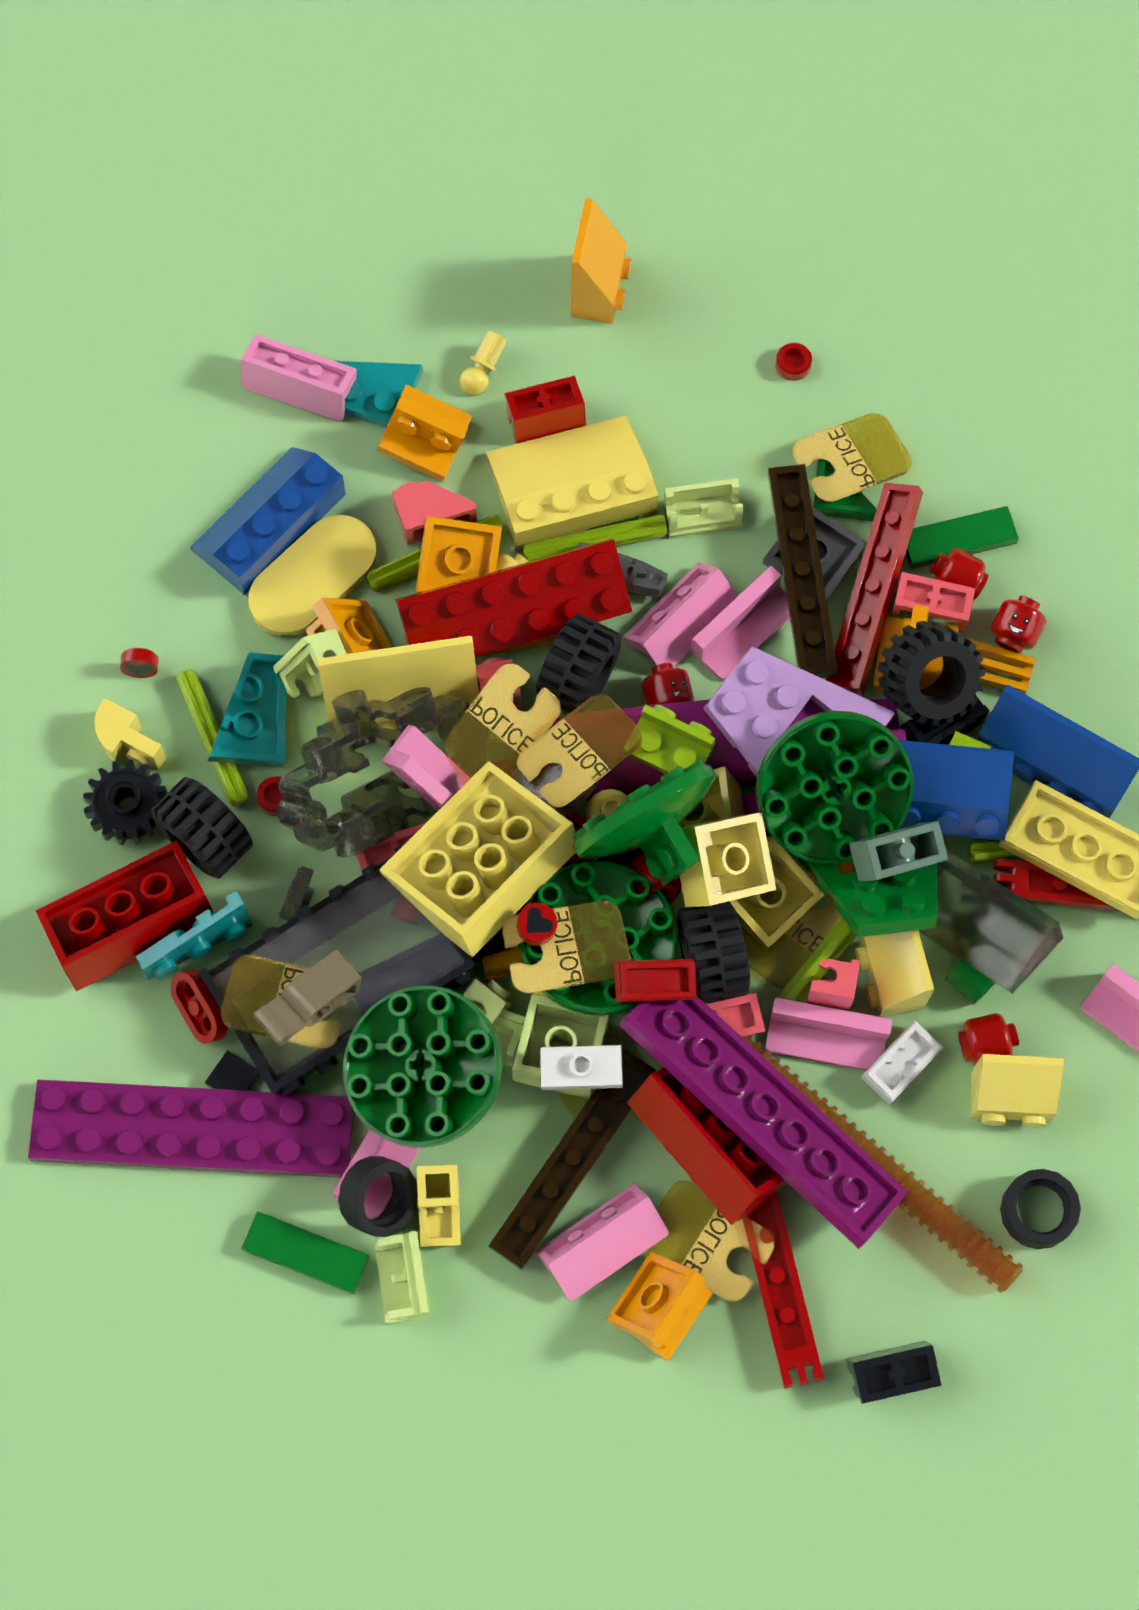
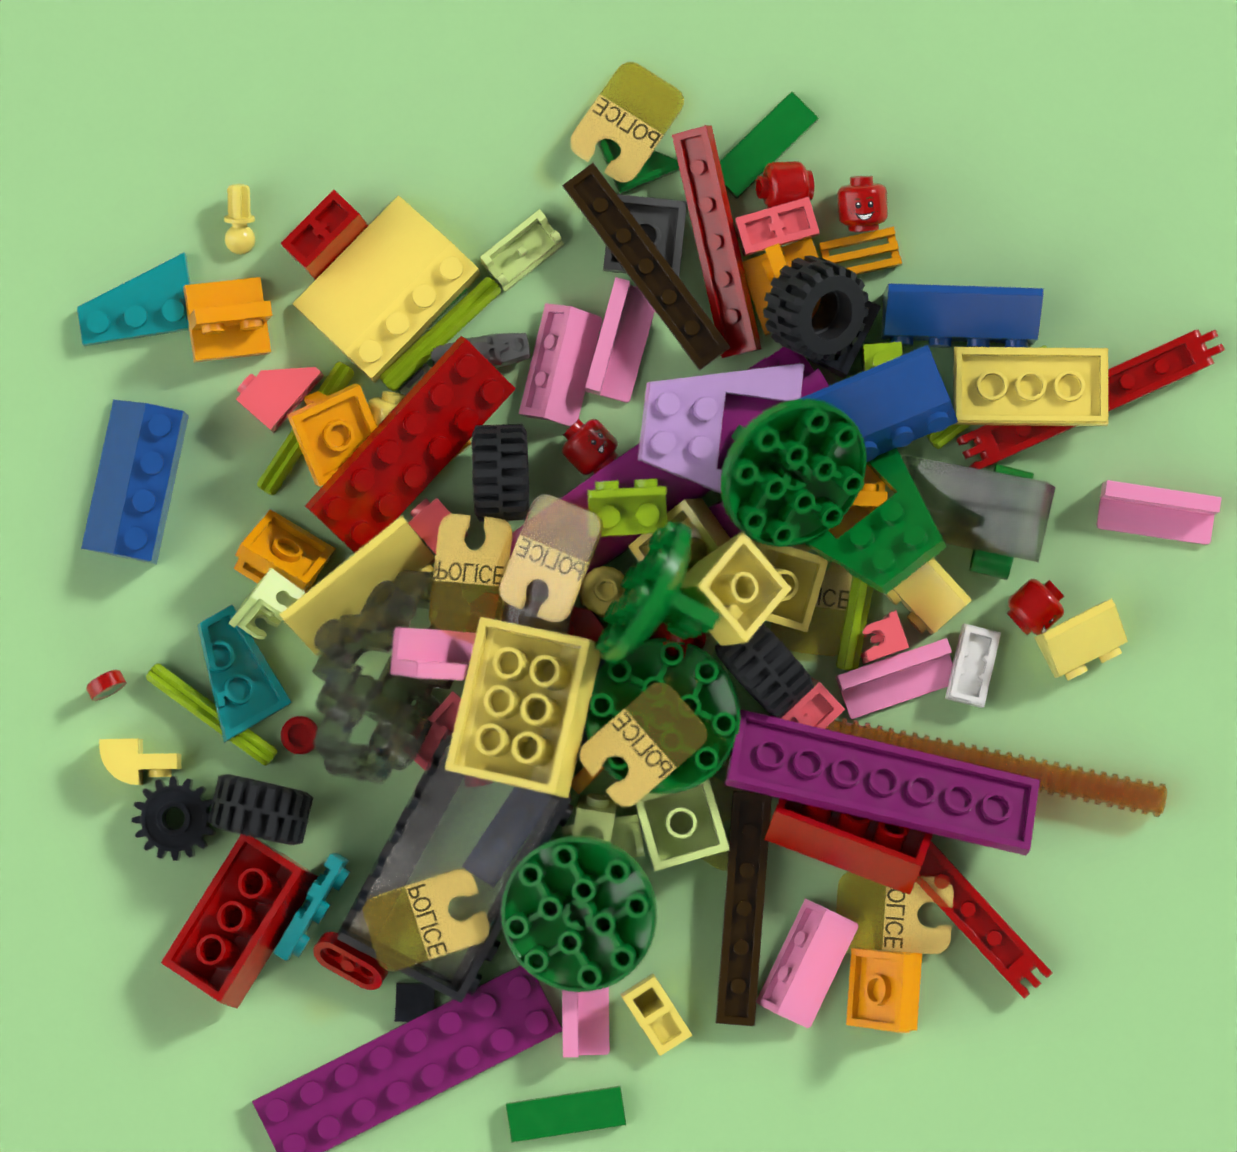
camera: 30 degrees left, 15 degrees up
(296, 377) = (79, 331): bright pink panel -> none
(298, 893) = (377, 819): clear smoke plate -> none
(310, 998) = (448, 910): dark tan piece -> none
(321, 563) = (208, 512): light yellow tile -> none
(354, 1188) = (582, 1041): black tyre -> none
(402, 1278) = (660, 1090): yellowish green hinge -> none
(536, 924) = (609, 742): red tile -> none
(581, 1067) = (712, 838): white plate -> none
(598, 267) = (295, 69): light orange slope -> none
(655, 980) = (734, 730): red tile -> none
(793, 361) = (520, 53): red tile -> none
(894, 1371) = (1106, 934): black hinge -> none
(898, 851) = (879, 500): sand green brick -> none
(1058, 1184) = (1182, 718): black tyre -> none

